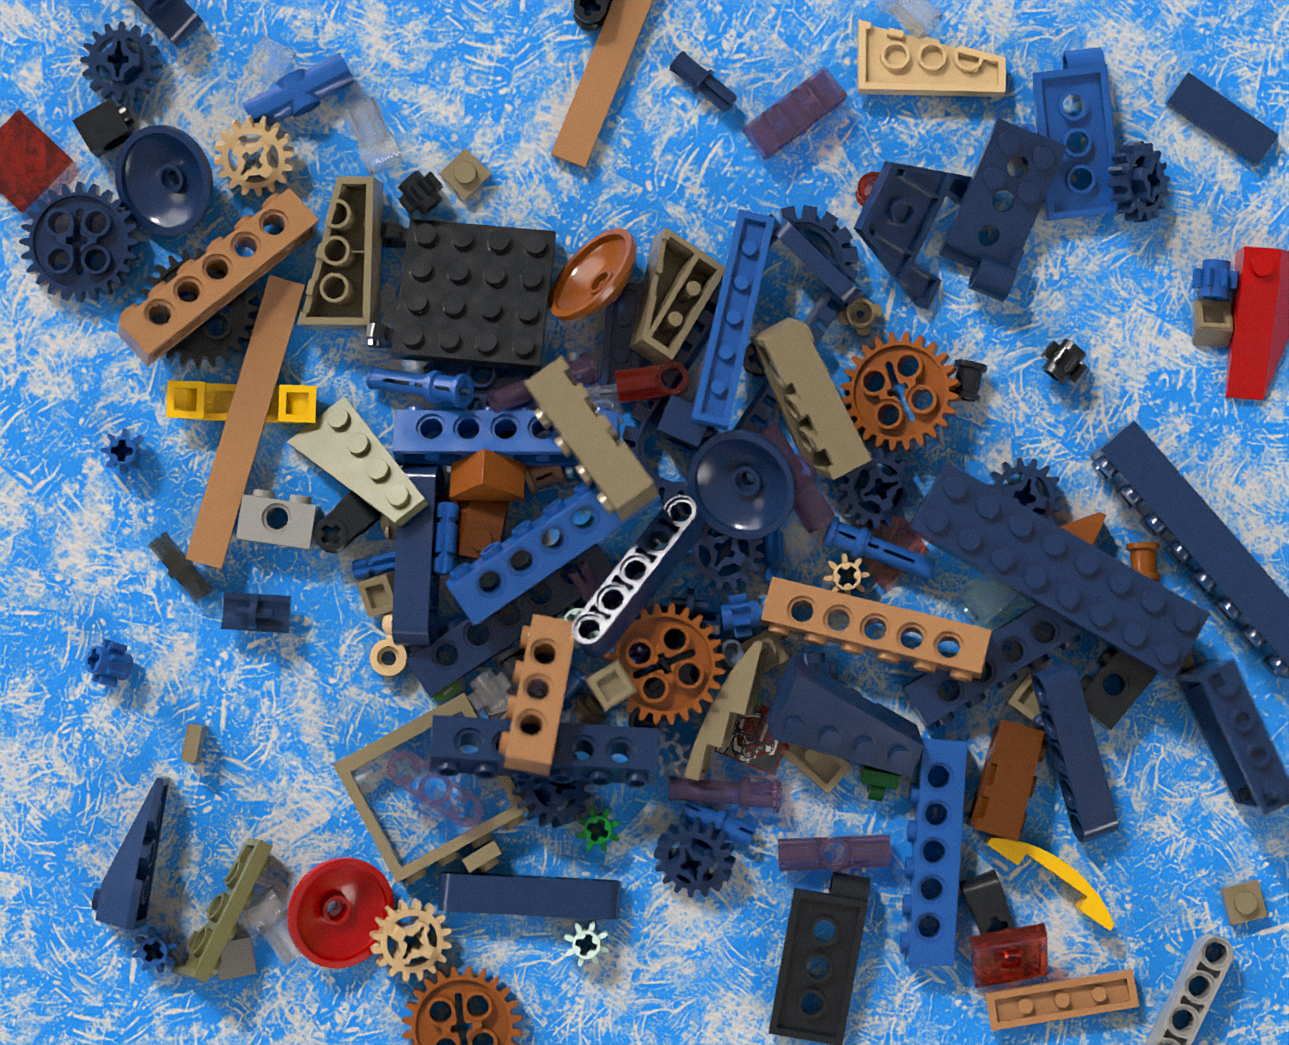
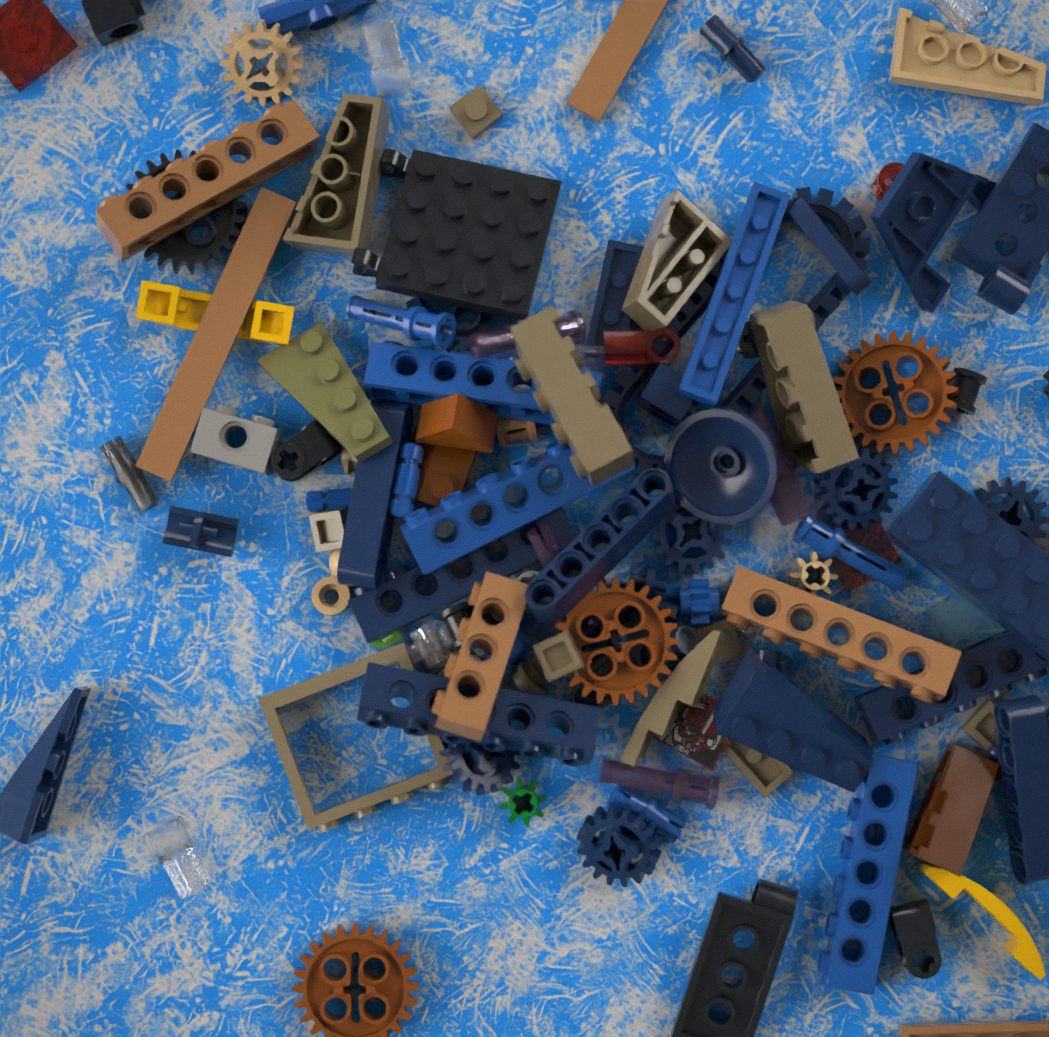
camera: 10 degrees right, 0 degrees up
(47, 243) = (39, 125): dark blue gear -> none
(109, 663) = (43, 563): blue gear -> none
(119, 443) = (85, 339): blue gear -> none
(145, 950) = (61, 865): blue gear -> none
(149, 182) = (151, 74): dark blue dish -> none
(194, 743) = (119, 657): dark tan tile -> none
(223, 913) = (125, 836): olive wing -> none
(237, 959) = (131, 884): light grey tile -> none
(341, 935) = (259, 867): red dish -> none
(402, 952) = (324, 877): tan gear -> none
(420, 193) = (427, 123): black gear -> none
(454, 811) = (375, 766): clear purple beam -> none
(484, 857) = (401, 815): dark tan plate -> none
(529, 895) = (443, 860): dark blue beam -> none
(593, 275) = (595, 231): dark orange dish -> none
(596, 939) = (500, 928): light aqua gear -> none
(774, 555) = (741, 543): blue axle -> none
(795, 113) = (822, 93): clear purple beam -> none
(859, 852) = (788, 861): clear purple piece -> none
(862, 324) = (862, 319): dark tan plate -> none
(877, 781) = (818, 791): dark green tile -> none
(1009, 955) = (932, 991): clear red tile -> none

